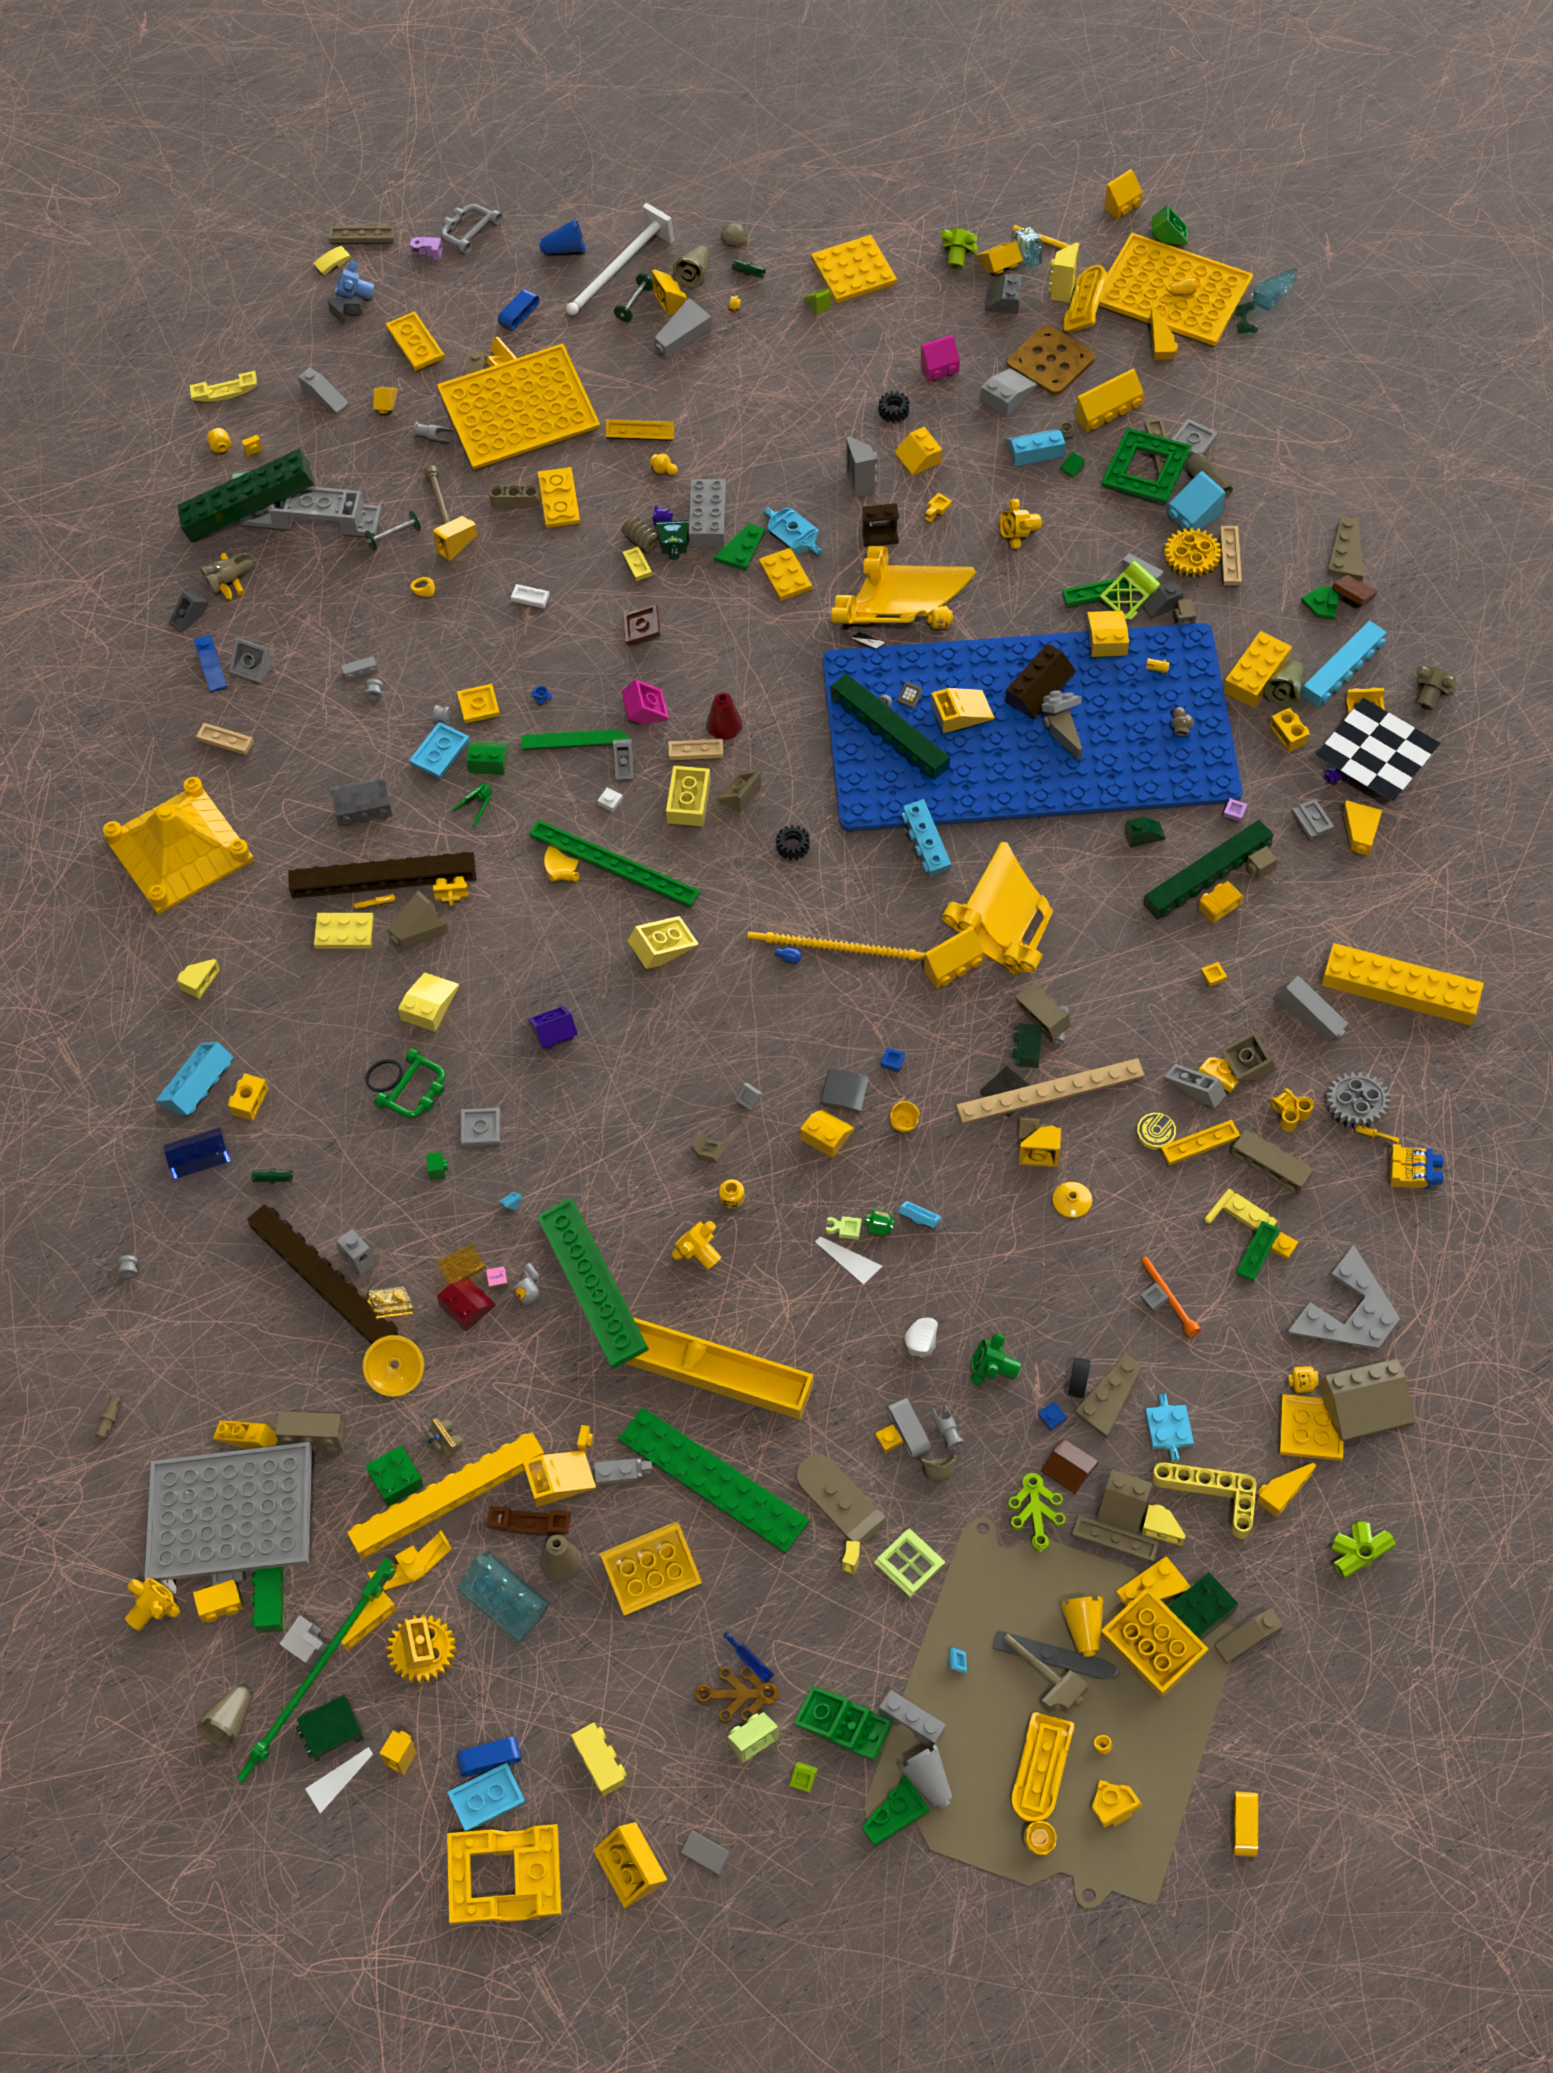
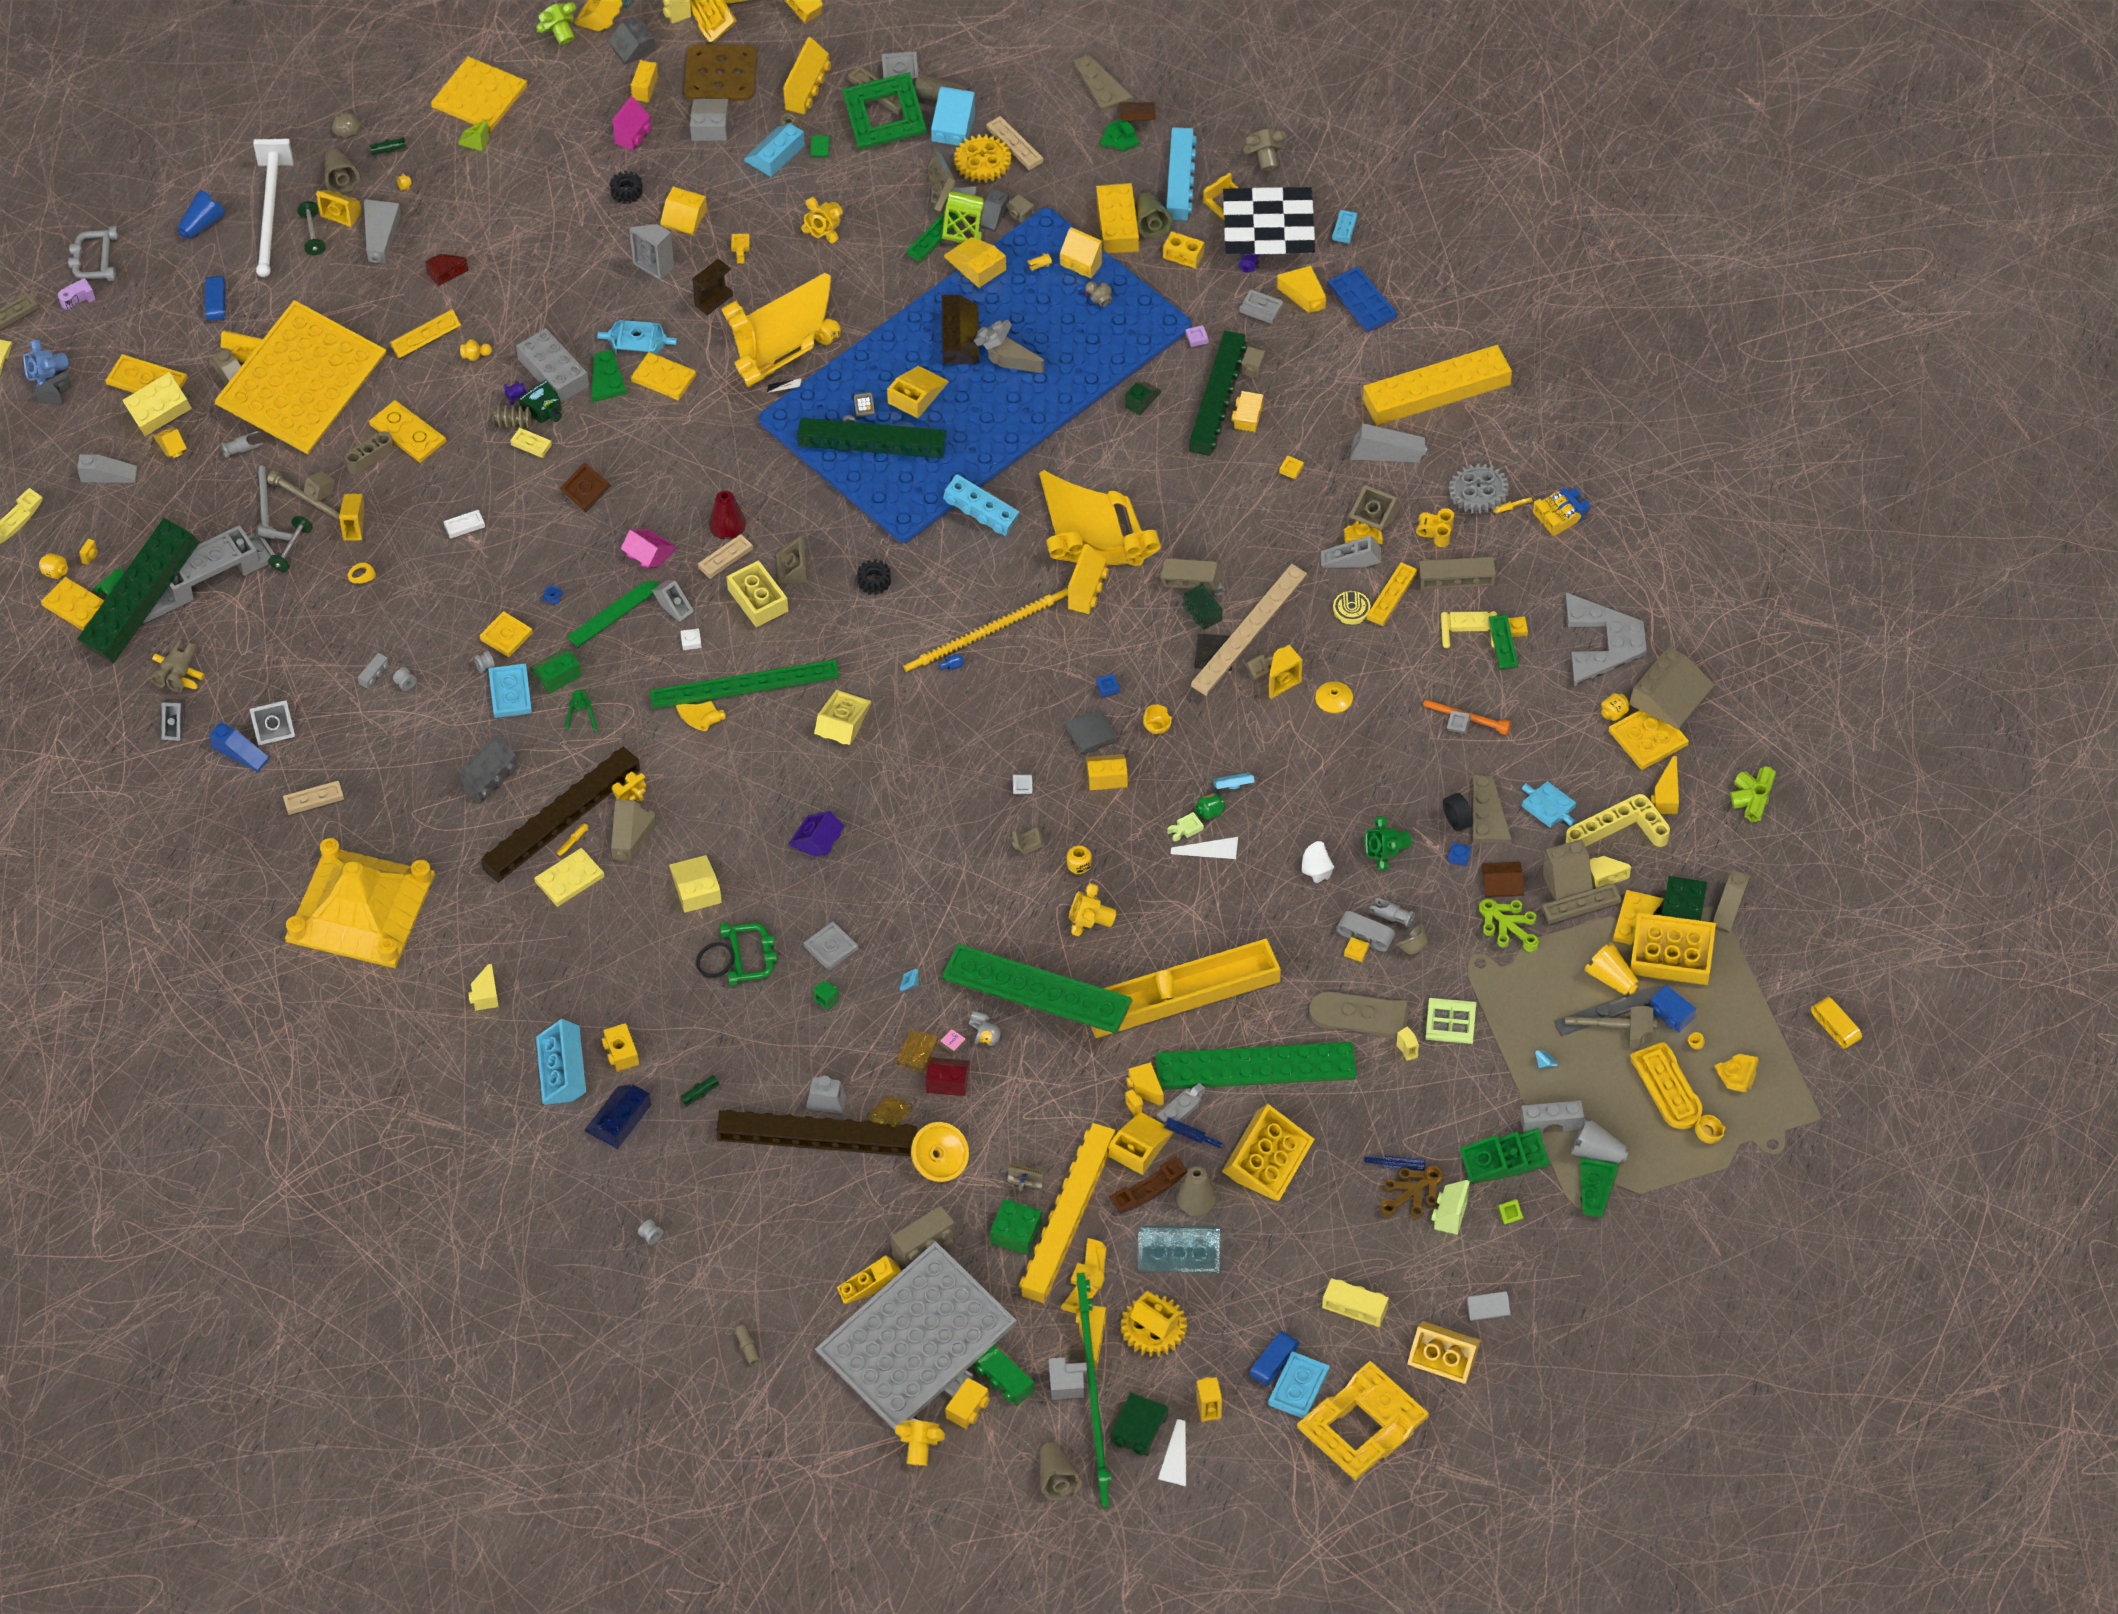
camera: 40 degrees left, 5 degrees down
(206, 473) = (72, 603): none -> yellow plate
(384, 508) = (265, 530): none -> light grey bar
(398, 363) = (157, 404): none -> light yellow brick
(452, 498) = (319, 486): none -> dark tan brick
(605, 1499) = (1189, 1132): none -> clear blue axle
(609, 1427) = (1145, 1083): none -> yellow slope
(701, 387) = (445, 267): none -> clear red slope
(983, 331) = (644, 81): none -> yellow brick
(1107, 1697) = (1672, 1008): none -> blue brick
(1138, 548) = (941, 180): none -> dark tan wing
(1194, 679) = (1081, 253): none -> yellow slope
(1405, 868) = (1362, 299): none -> blue plate
(1446, 795) = (1344, 226): none -> medium azure plate

